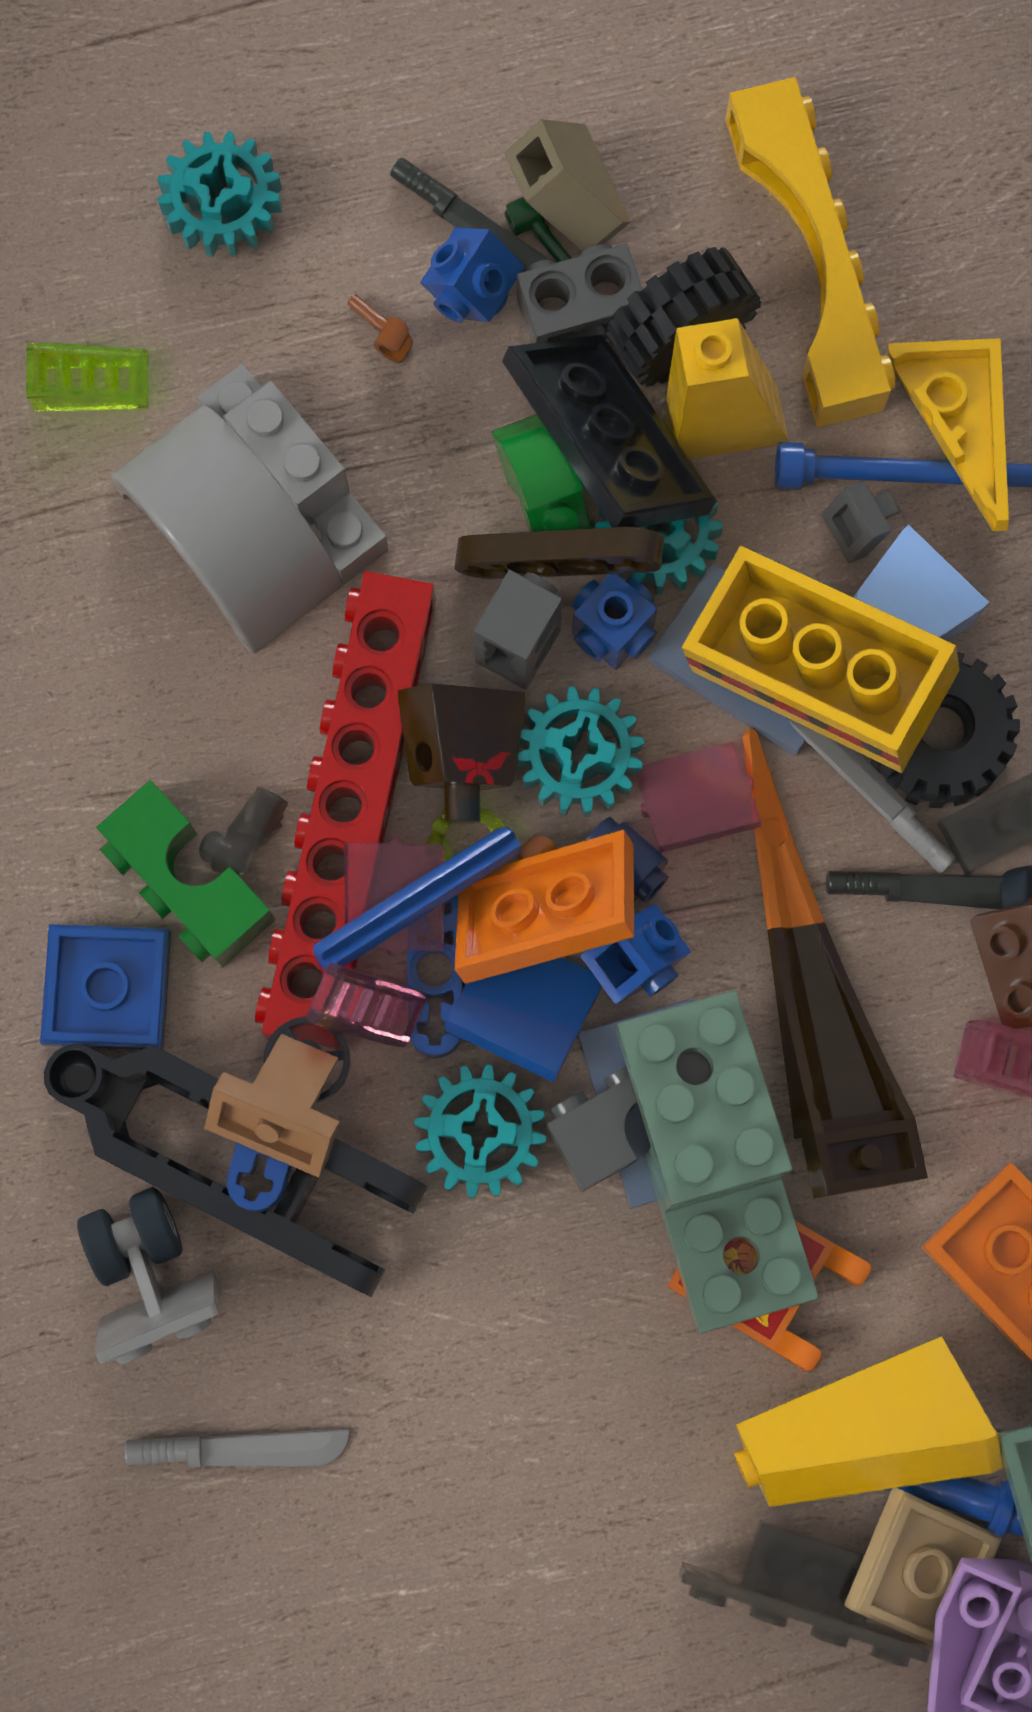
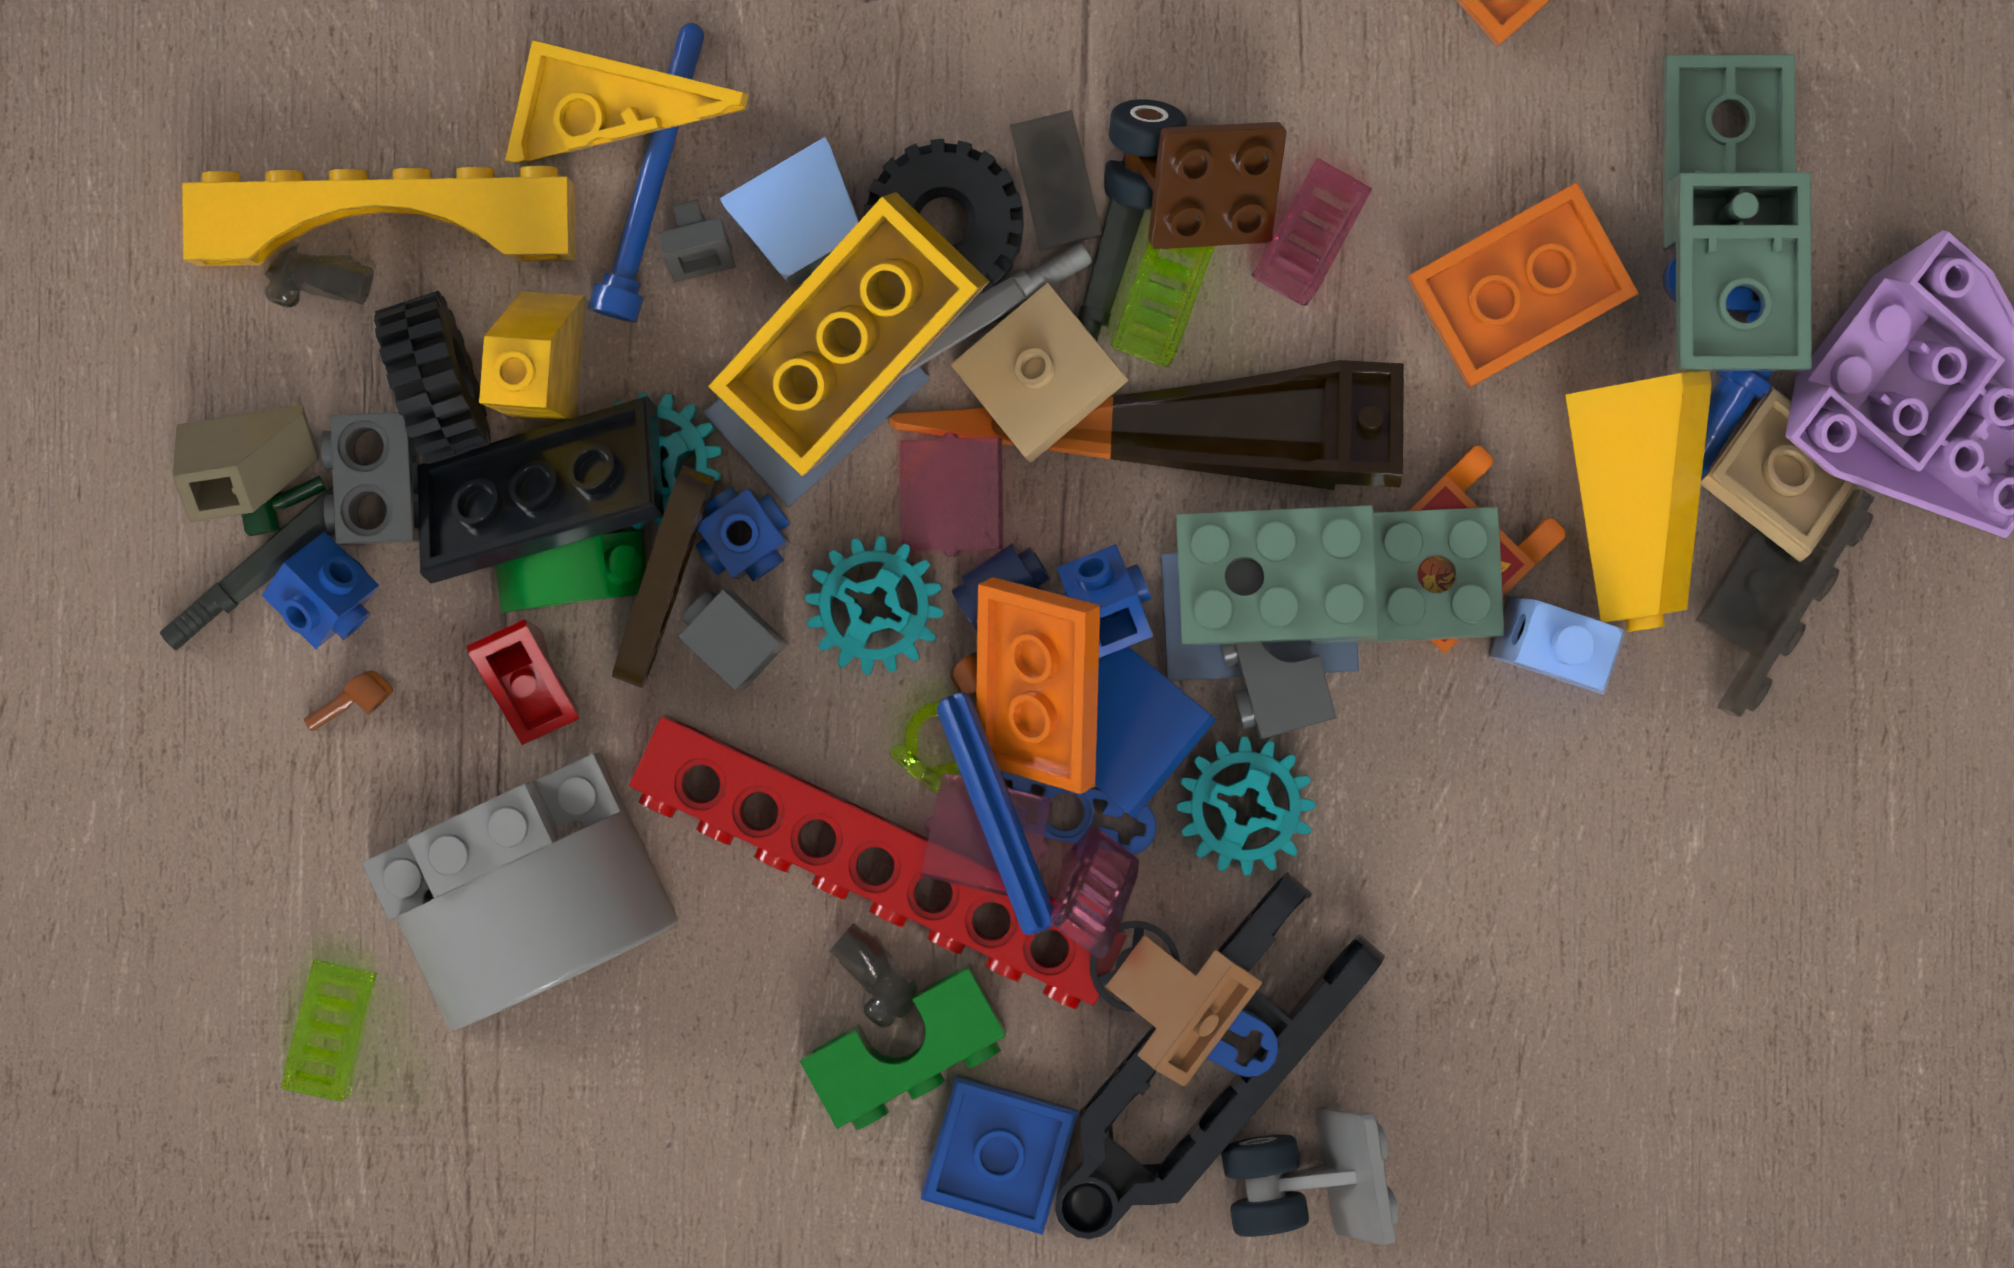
camera: 80 degrees left, 10 degrees up
(203, 177) = (143, 866): teal gear -> none
(262, 1449) = (1505, 1101): light grey piece -> none
(436, 461) = (524, 680): none -> red slope
(461, 742) = (839, 727): dark brown torso -> none
(705, 1392) = (1558, 643): none -> light blue torso
(745, 214) = (321, 275): none -> clear smoke arm
(828, 846) = (1039, 372): none -> tan plate
(891, 943) = (1149, 343): none -> clear neon green slope

